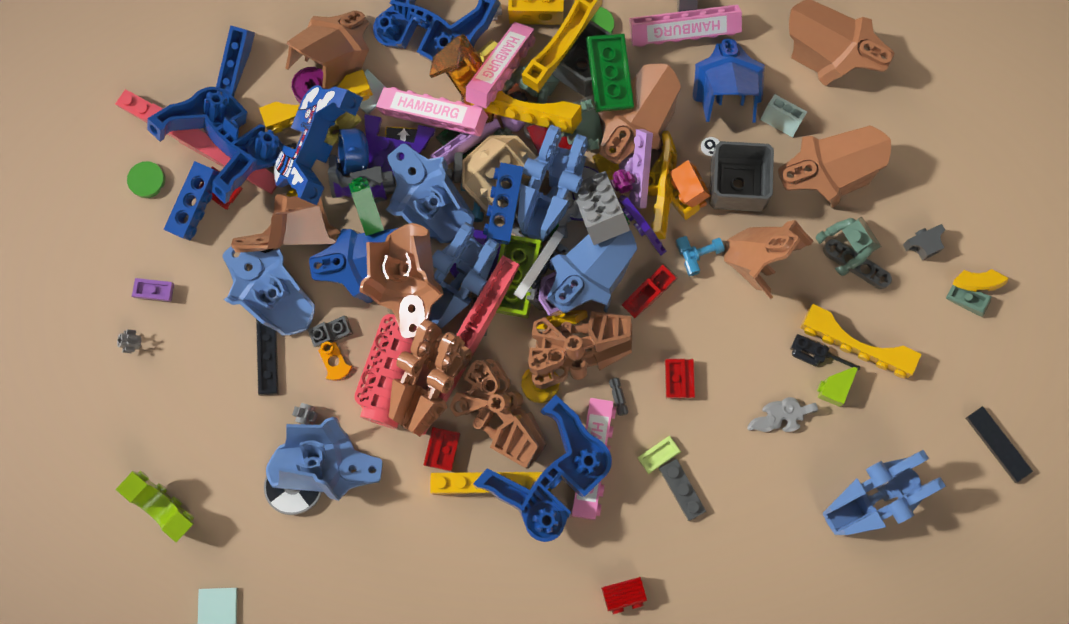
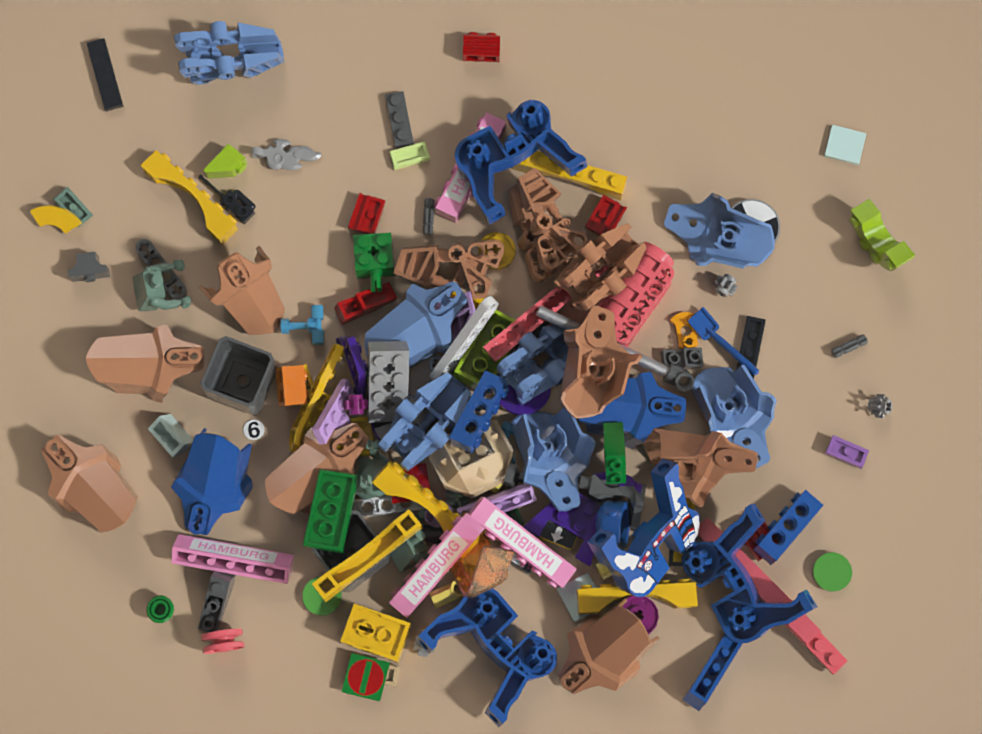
camera: 170 degrees left, 0 degrees up
(171, 393) = (849, 346): none -> dark grey axle
(315, 369) = (706, 326): none -> blue piece
(328, 309) = (671, 373): none -> flat silver piece
(653, 323) = (374, 266): none -> green brick

